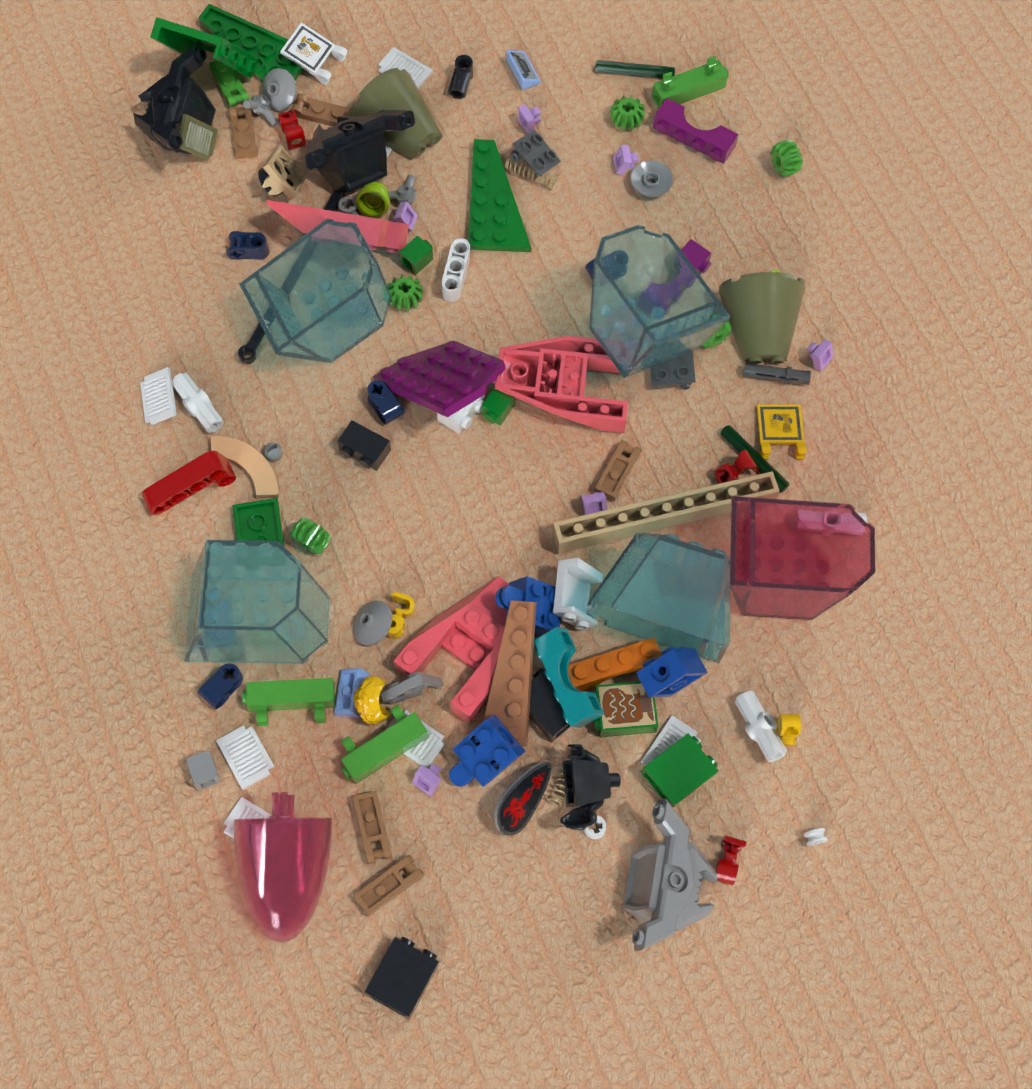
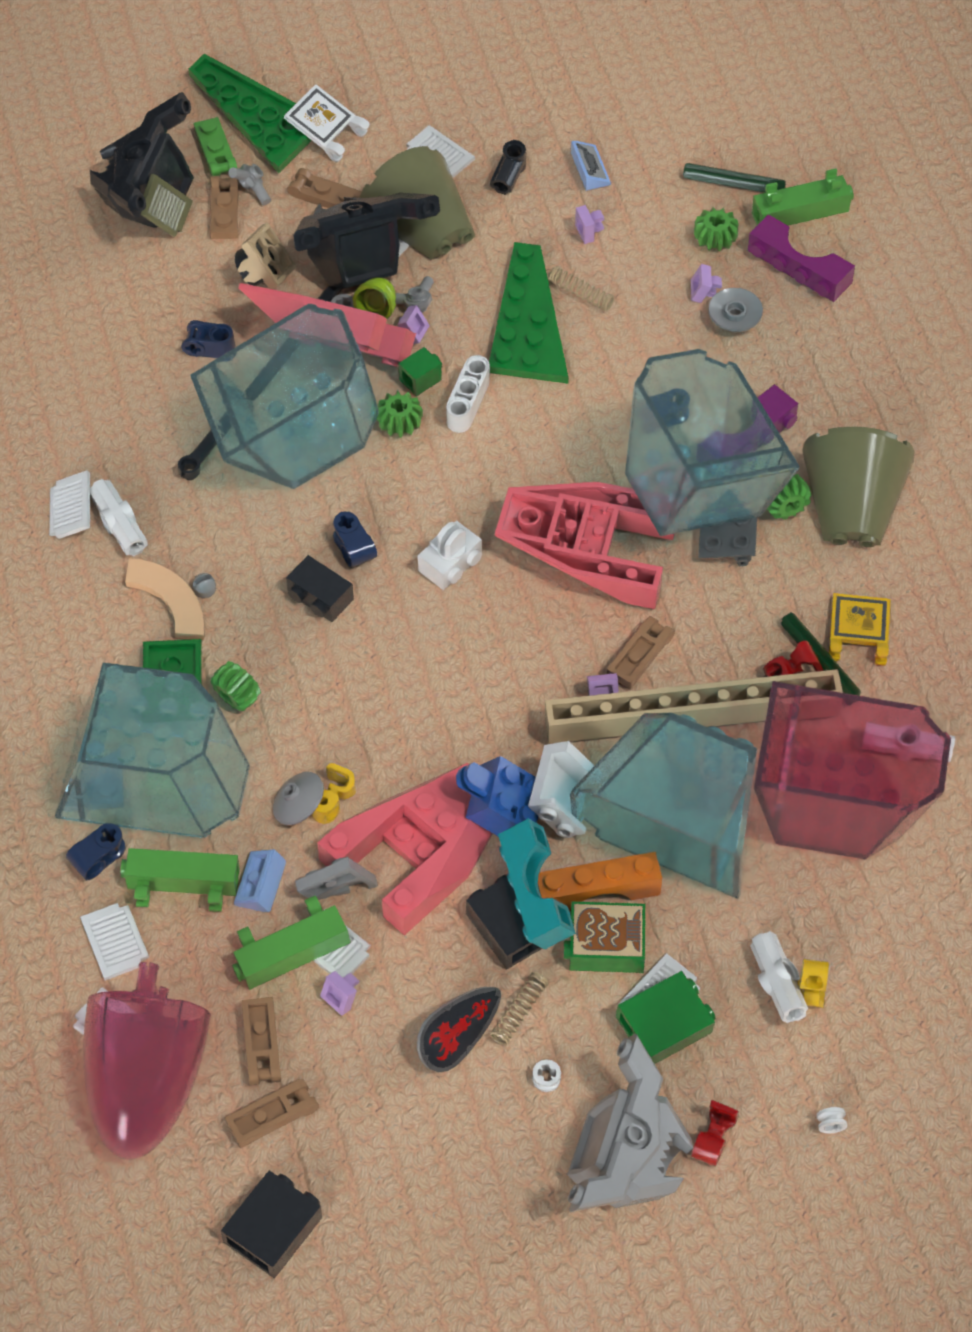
camera: 10 degrees right, 10 degrees down
(181, 38) = (161, 84): green panel -> none
(188, 480) = (92, 604): red beam -> none
(203, 770) = (59, 948): light grey panel -> none
(285, 90) = (277, 160): light grey dish -> none
(289, 124) = (285, 208): red leg -> none
(367, 700) = (277, 886): yellow hair -> none
(443, 376) = (430, 512): magenta plate -> none
(483, 751) = (417, 966): blue brick -> none
(497, 406) = (496, 560): green brick -> none
(513, 672) = (459, 899): nougat wing -> none
(535, 152) = (589, 263): dark grey hinge -> none
(586, 785) = (540, 1017): black torso -> none
(671, 671) = (670, 892): blue brick -> none
(775, 373) = (864, 558): dark grey pin -> none
(786, 158) = (914, 300): bright green gear -> none
(821, 354) = (925, 540): lavender tile -> none

